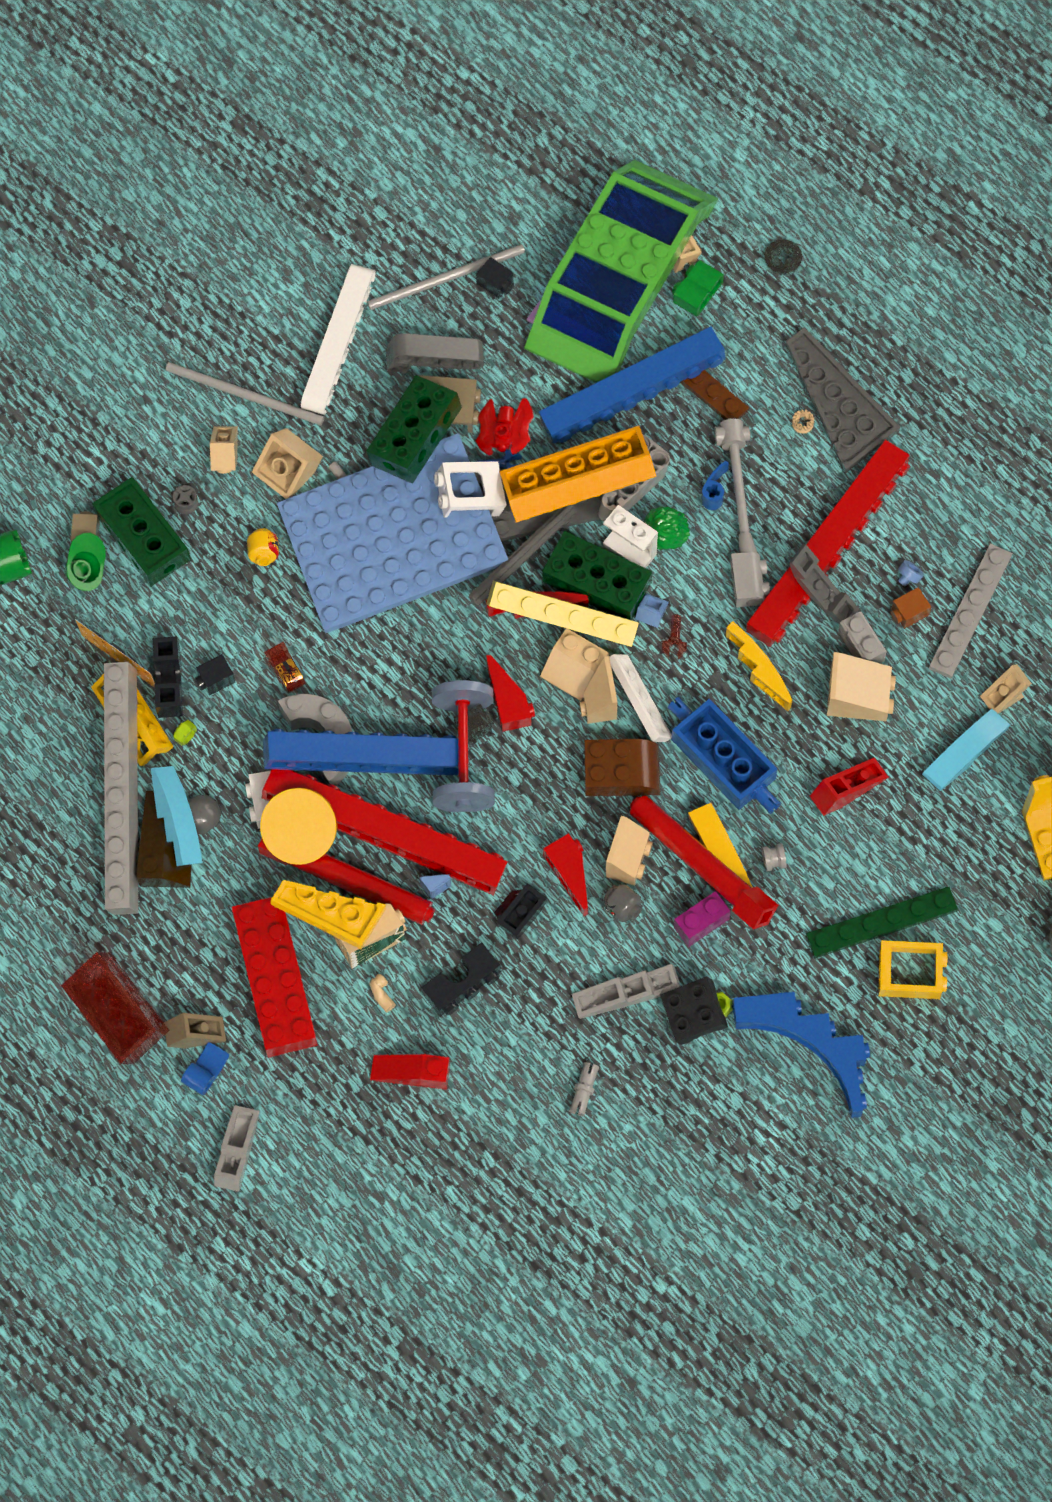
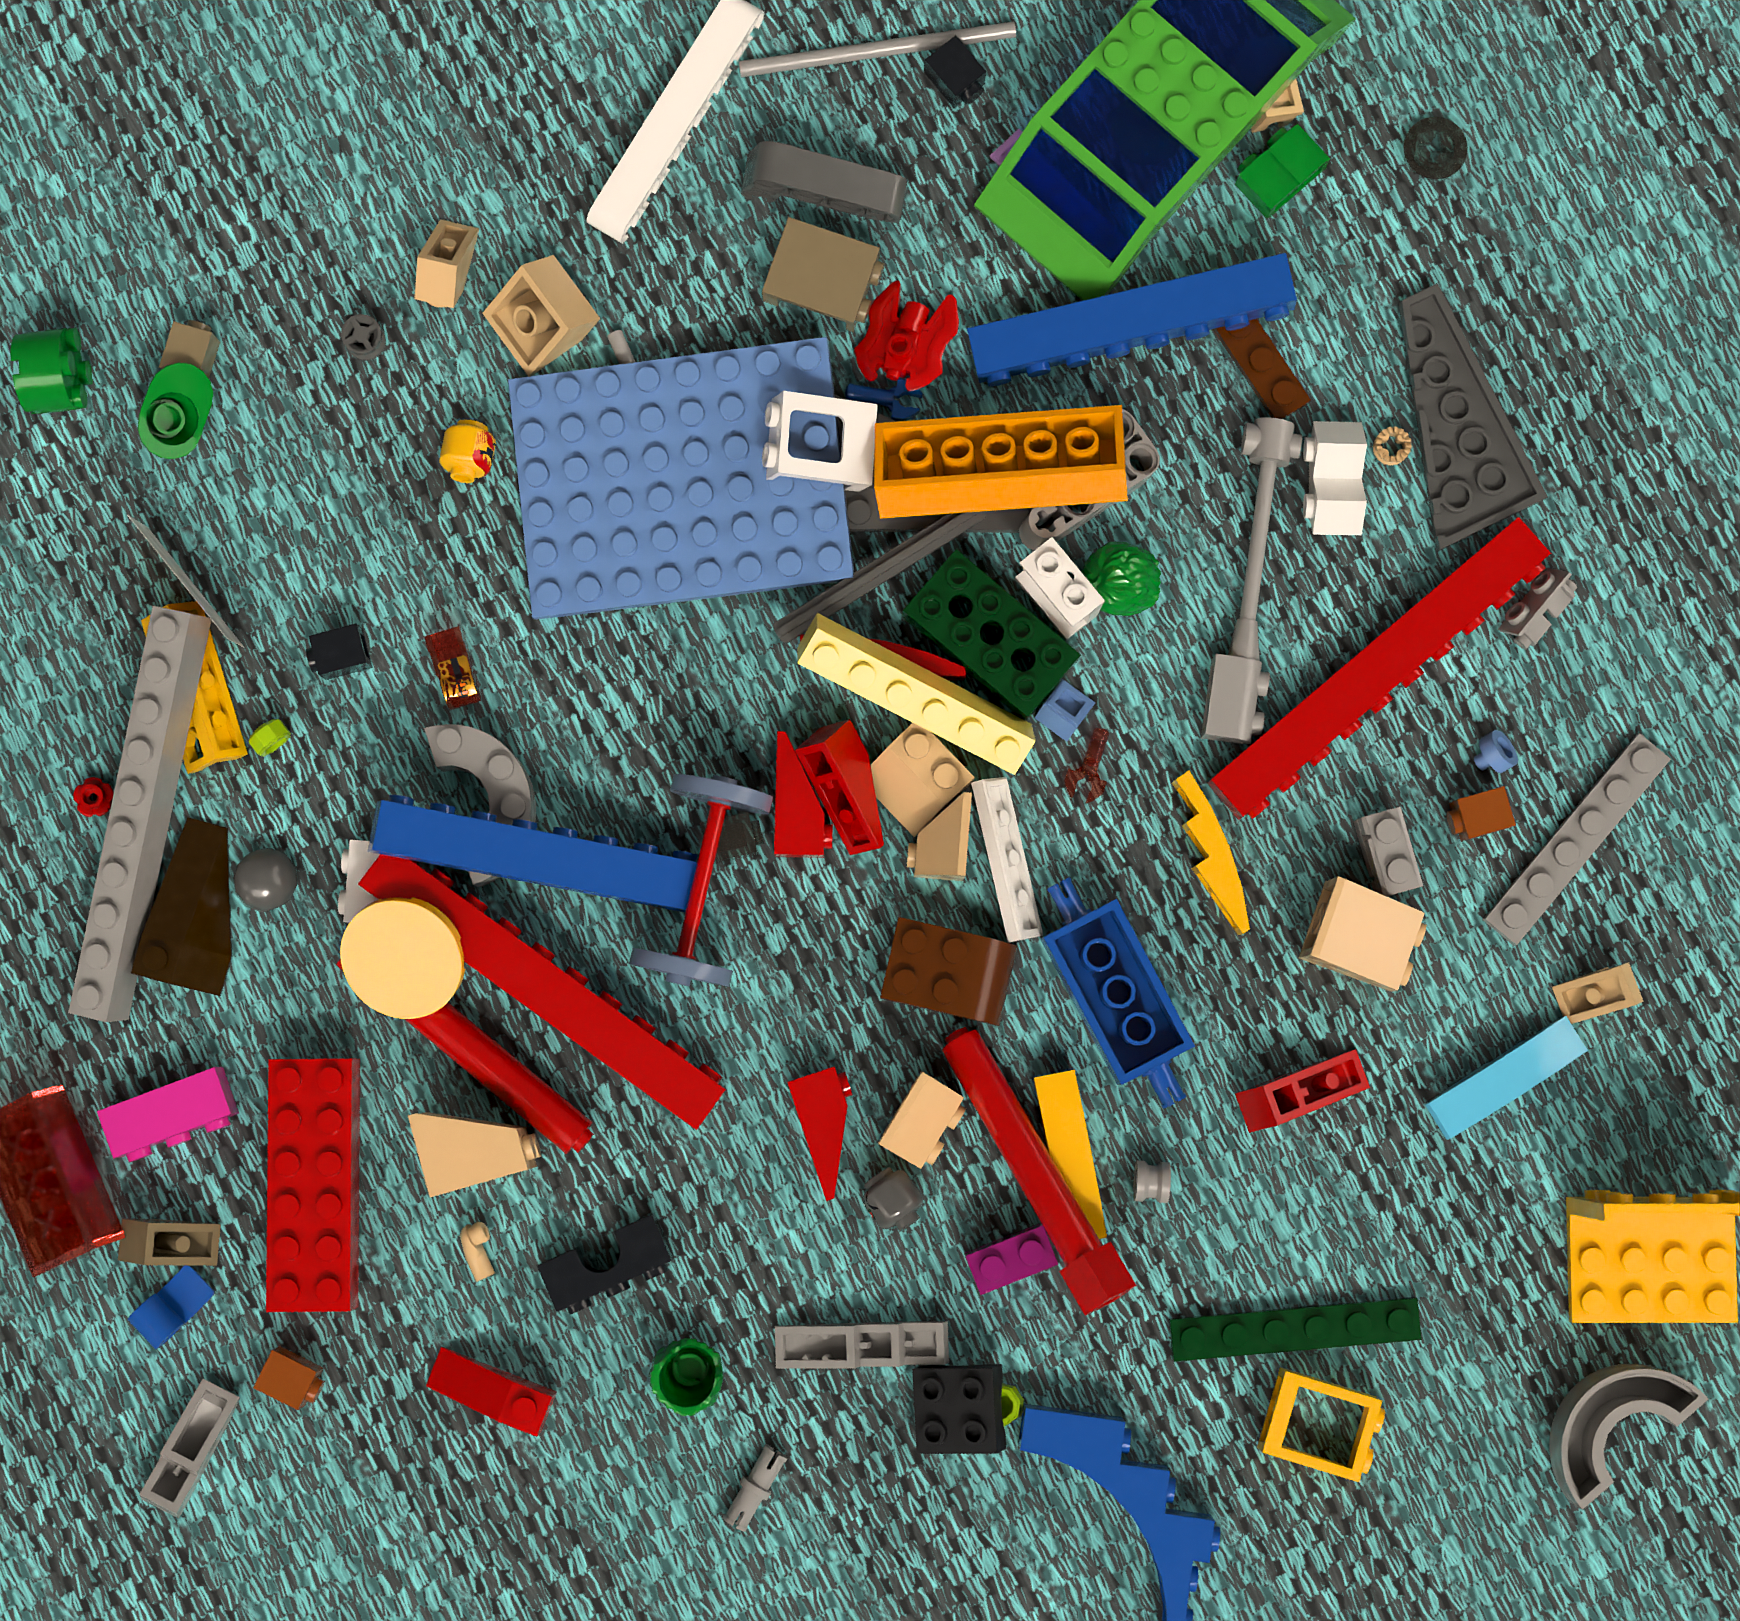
camera: 10 degrees right, 15 degrees up
(87, 797) = (101, 804): none -> red plate
(145, 517) = (251, 368): dark green brick -> none
(168, 677) = (268, 616): black arch -> none
(177, 815) = (220, 881): medium azure slope -> none
(177, 957) = (168, 1114): none -> dark pink brick
(244, 393) = (503, 174): light grey piece -> none
(287, 1091) = (290, 1378): none -> dark orange brick
(337, 915) = (422, 1130): yellow wing -> none
(414, 429) = (750, 291): dark green brick -> none
(435, 884) = (601, 1094): medium blue slope -> none
(519, 910) = (725, 1167): black slope -> none
(526, 1030) = (686, 1376): none -> green hair
(533, 678) = (844, 783): none -> red slope
(714, 487) = (1219, 527): blue panel -> none
(773, 439) = (1335, 478): none -> white brick
(819, 587) = (1347, 752): dark grey slope -> none
(916, 479) = (1549, 592): none -> light grey hinge

